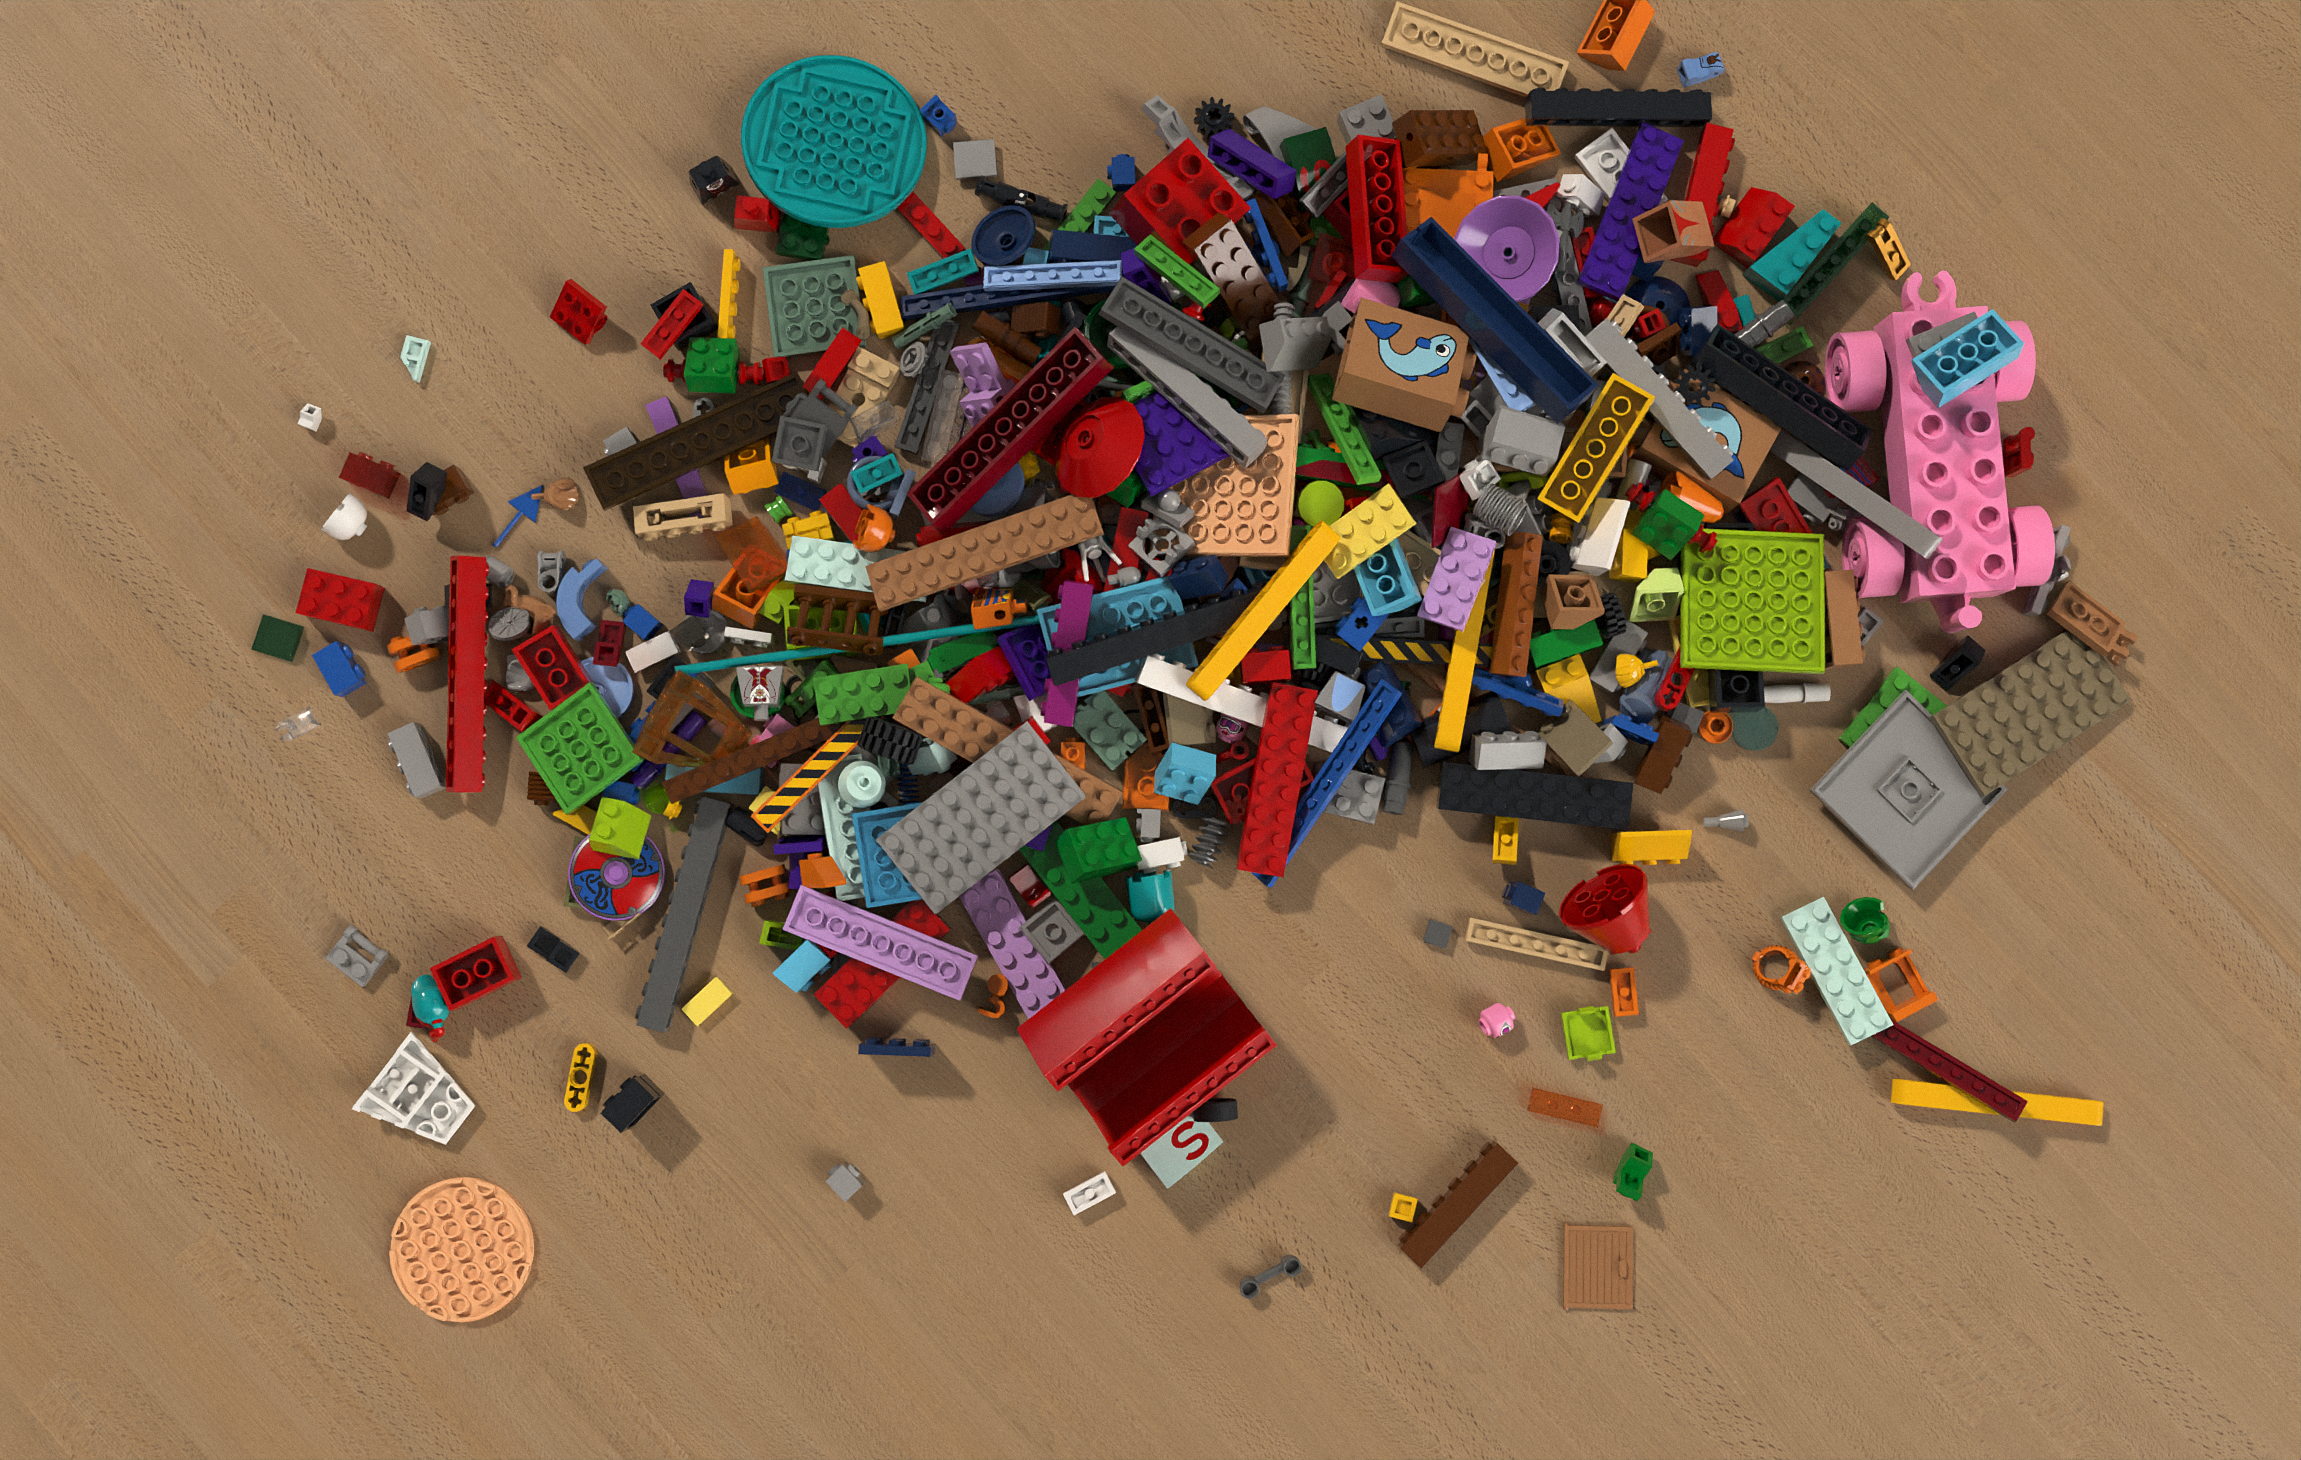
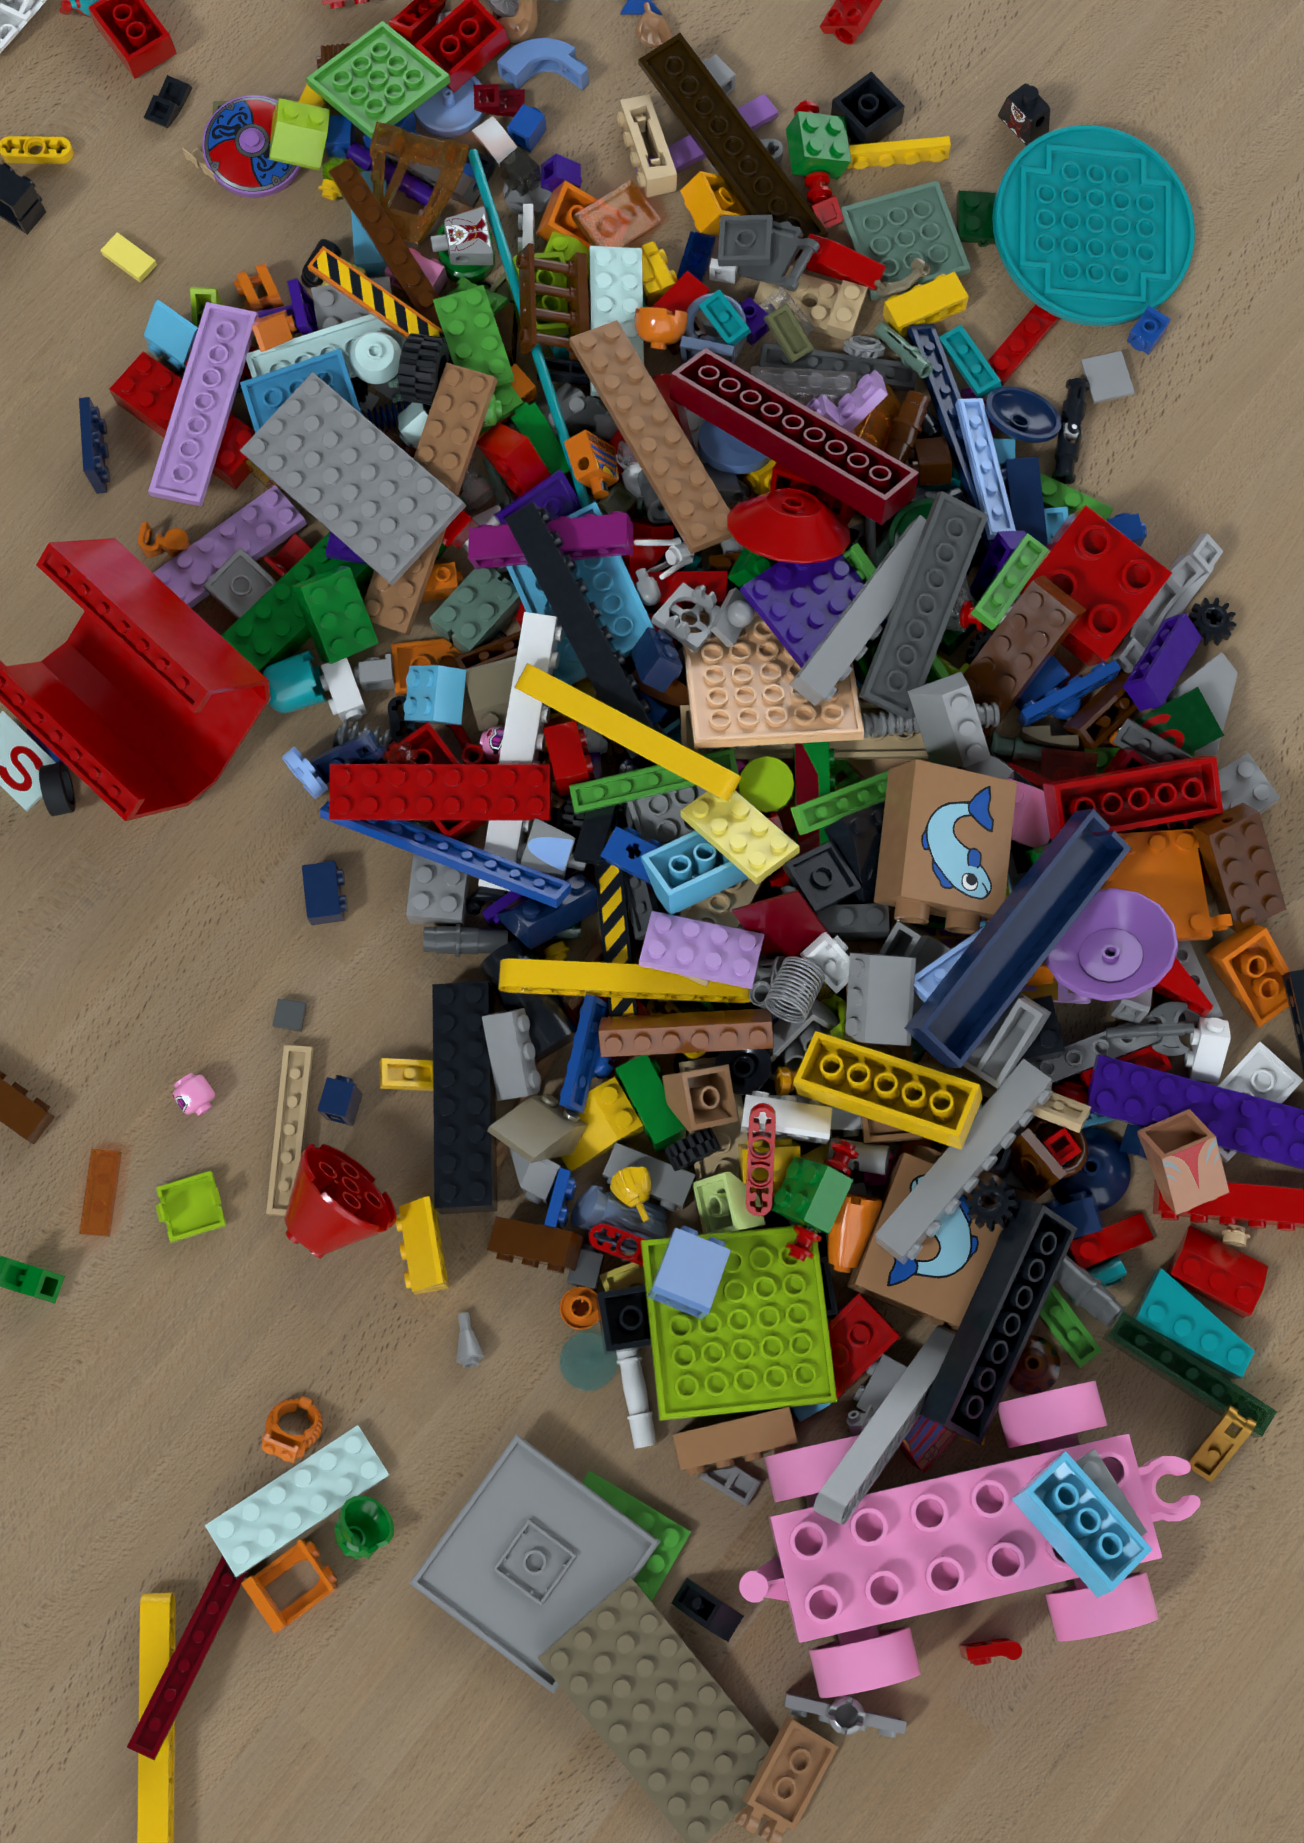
camera: 85 degrees right, 10 degrees down
(550, 567) = (568, 30): light grey piece -> none
(619, 601) = (547, 101): sand green plate -> none
(671, 324) = (852, 91): red plate -> none
(684, 915) = (216, 218): dark grey brick -> none
(753, 214) = (993, 155): red torso -> none
(778, 509) = (672, 239): bright green wheel -> none
(894, 421) = (788, 333): none -> olive tile
(1226, 856) = (348, 753): none -> dark blue plate
(1233, 894) = (304, 772): none -> light blue plate
(1338, 892) = (323, 893): none -> dark blue brick
(1420, 704) = (556, 952): none -> yellow plate
(1623, 991) = (244, 1242): orange plate -> none
(1636, 562) = (757, 1159): none -> red beam
(1719, 629) = (689, 1272): none -> medium blue slope

